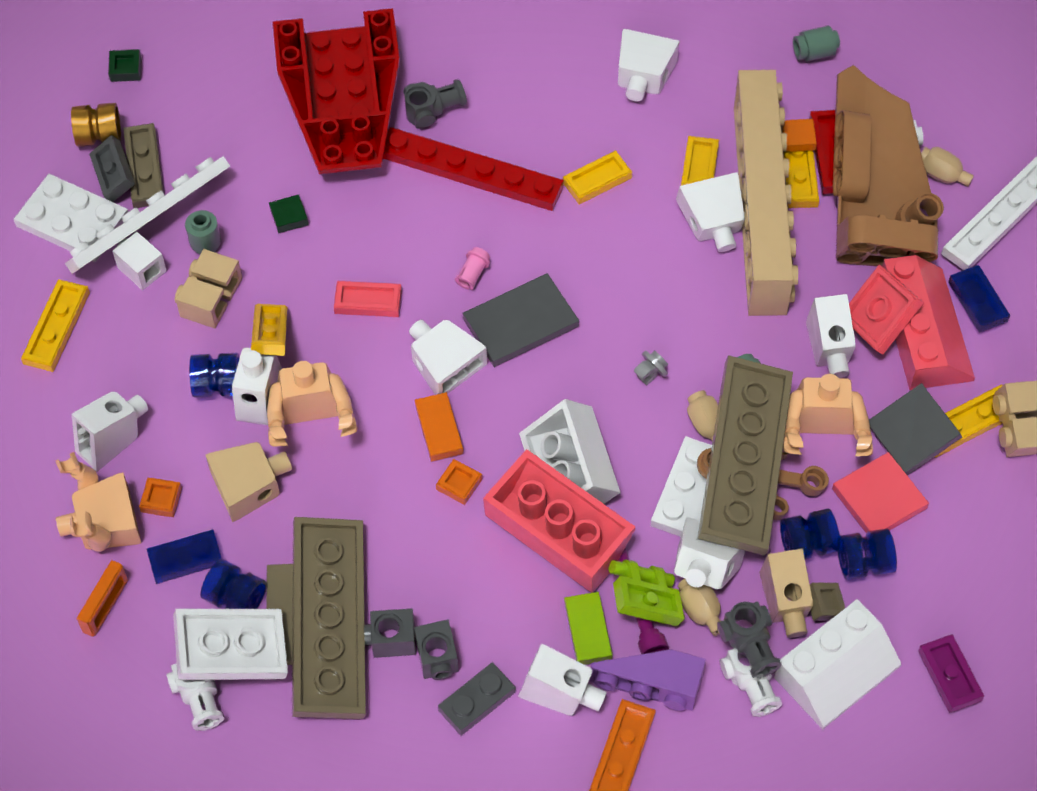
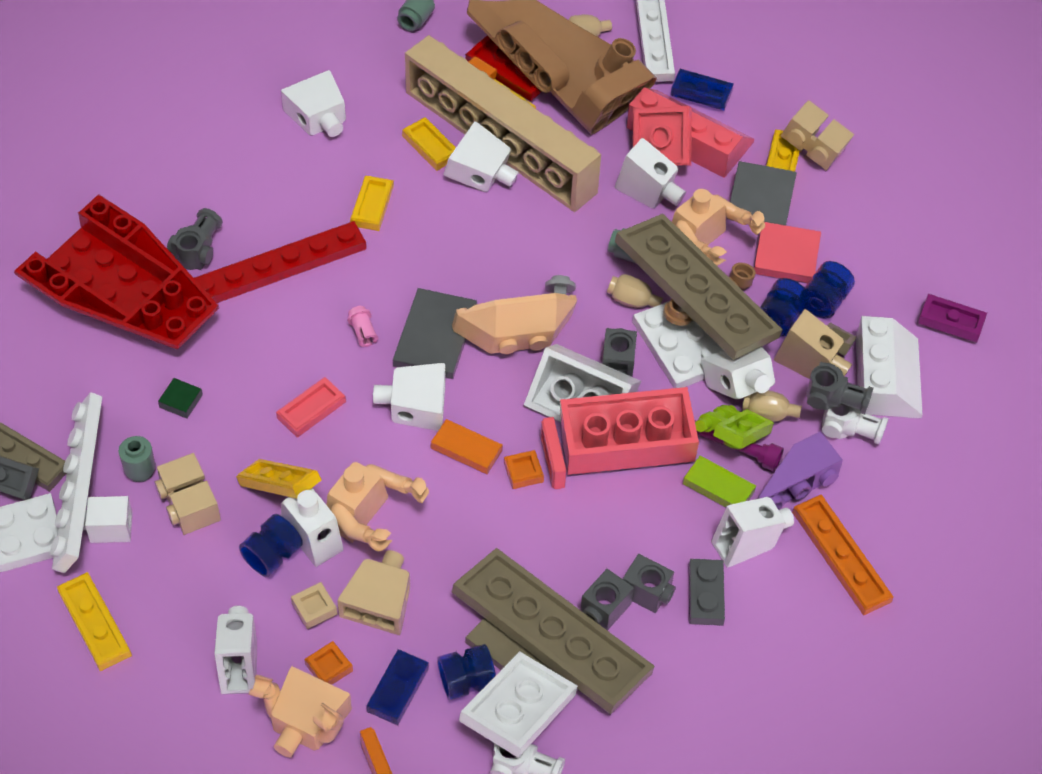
camera: 50 degrees left, 5 degrees down
(195, 444) = (314, 605): none -> tan plate
(474, 502) = (553, 453): none -> coral tile
(582, 367) = (515, 322): none -> light nougat wedge
(631, 468) = (623, 341): none -> dark grey brick

